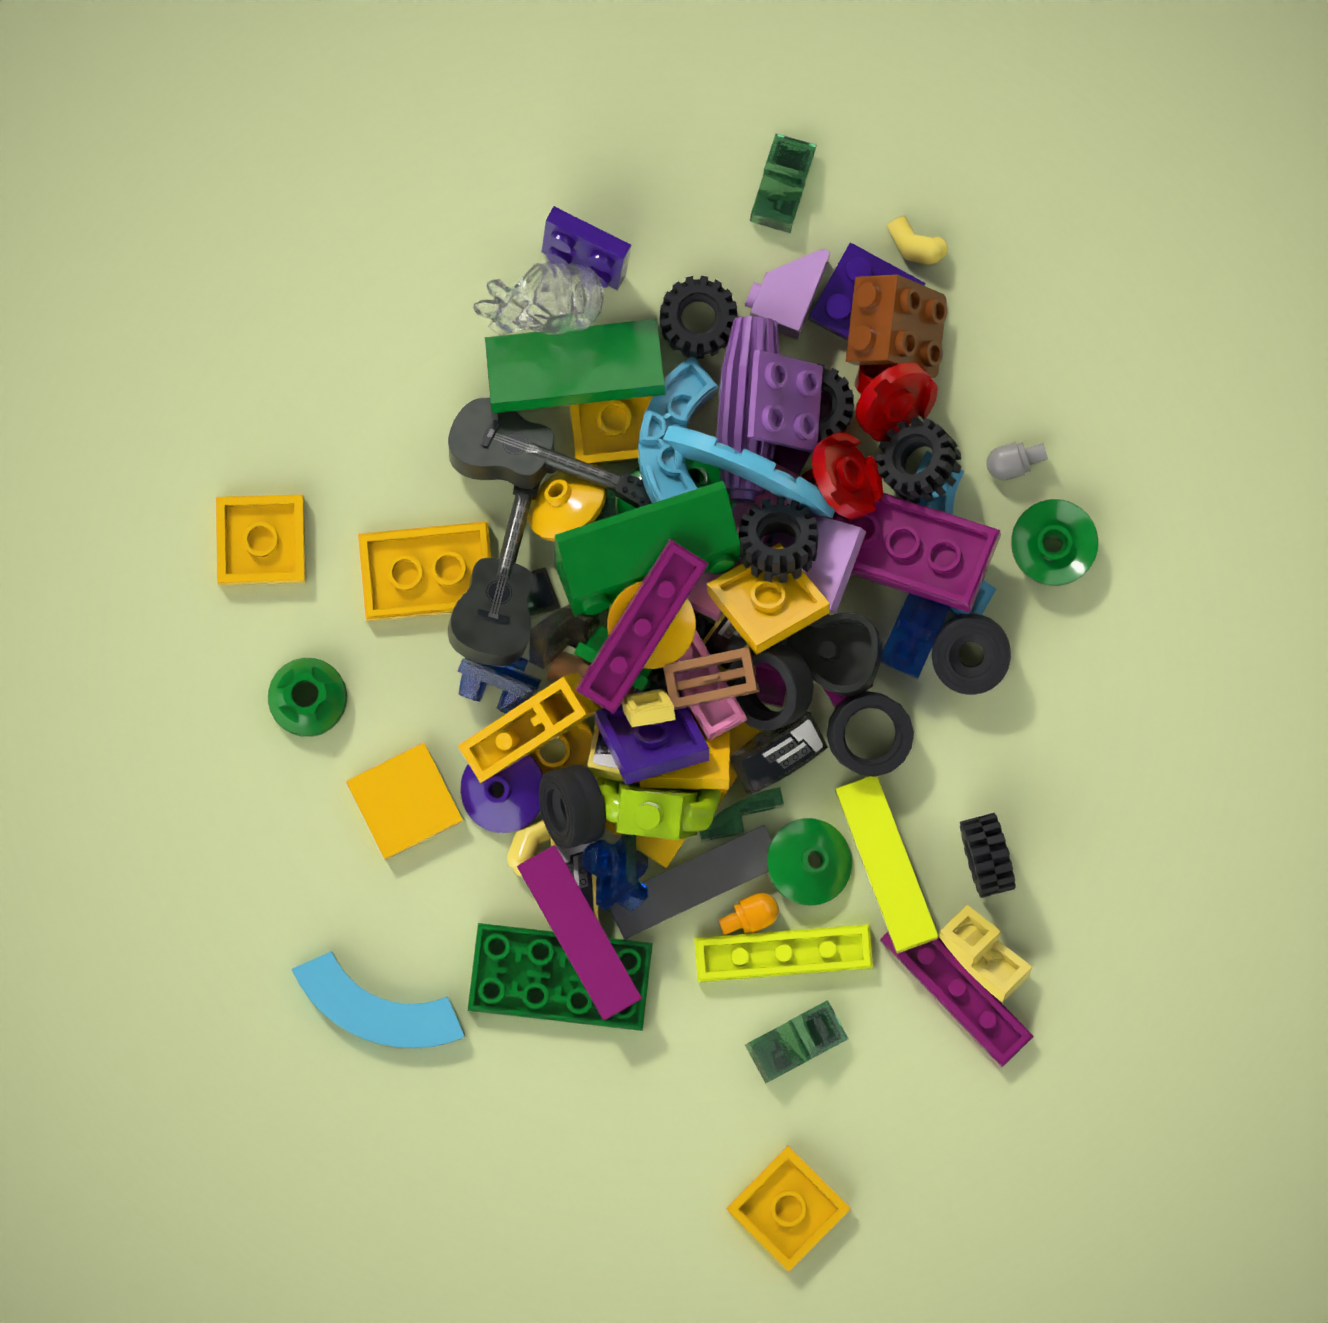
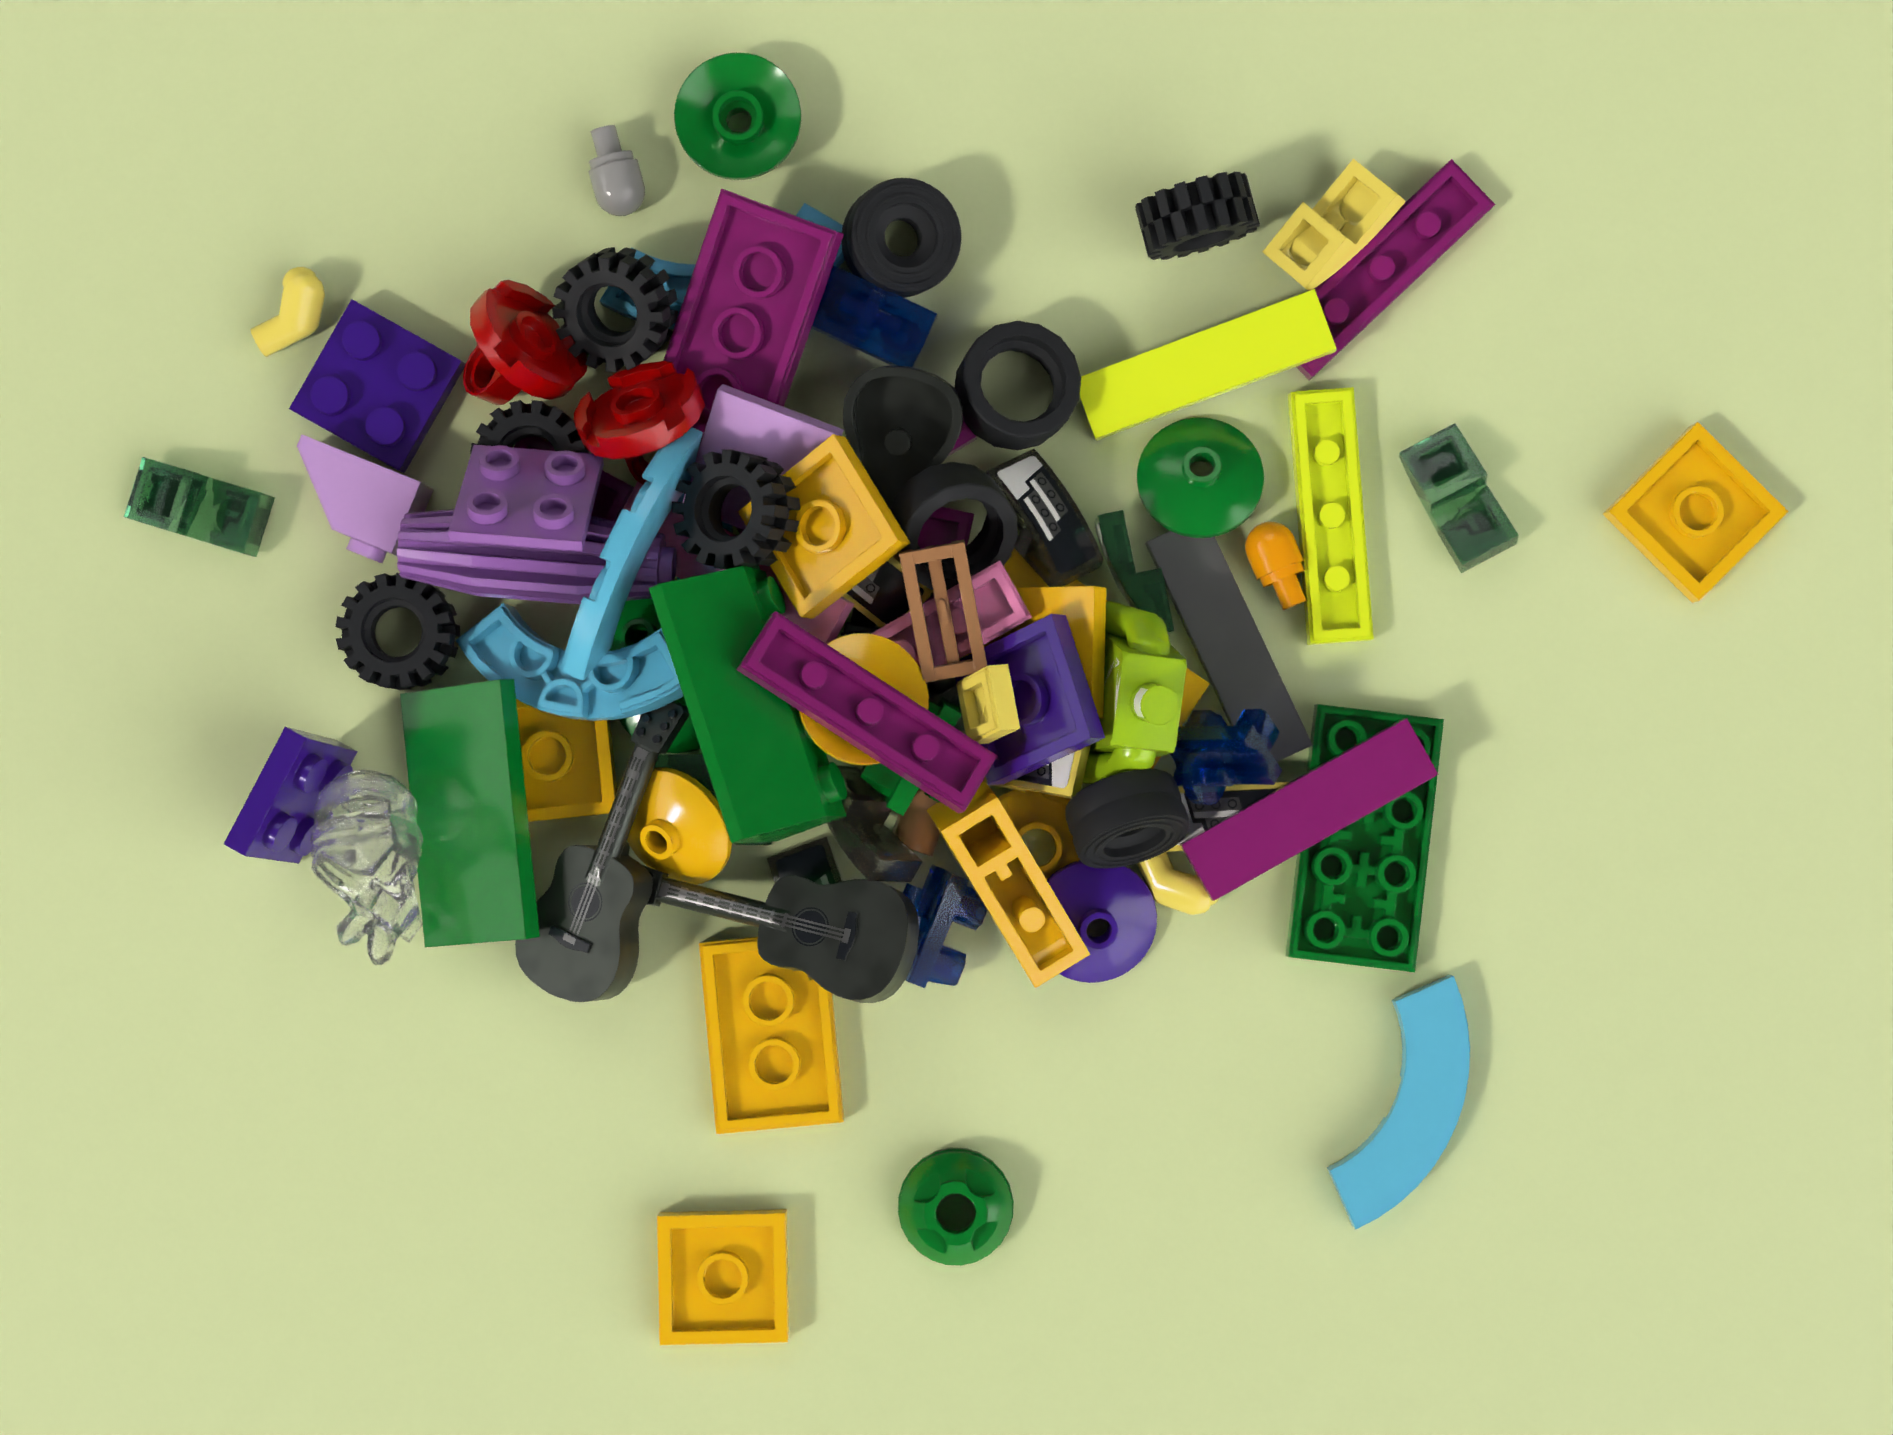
camera: 85 degrees left, 5 degrees up
(404, 801) = (1109, 1064): yellow tile -> none
(896, 323) = (409, 341): dark orange bracket -> none

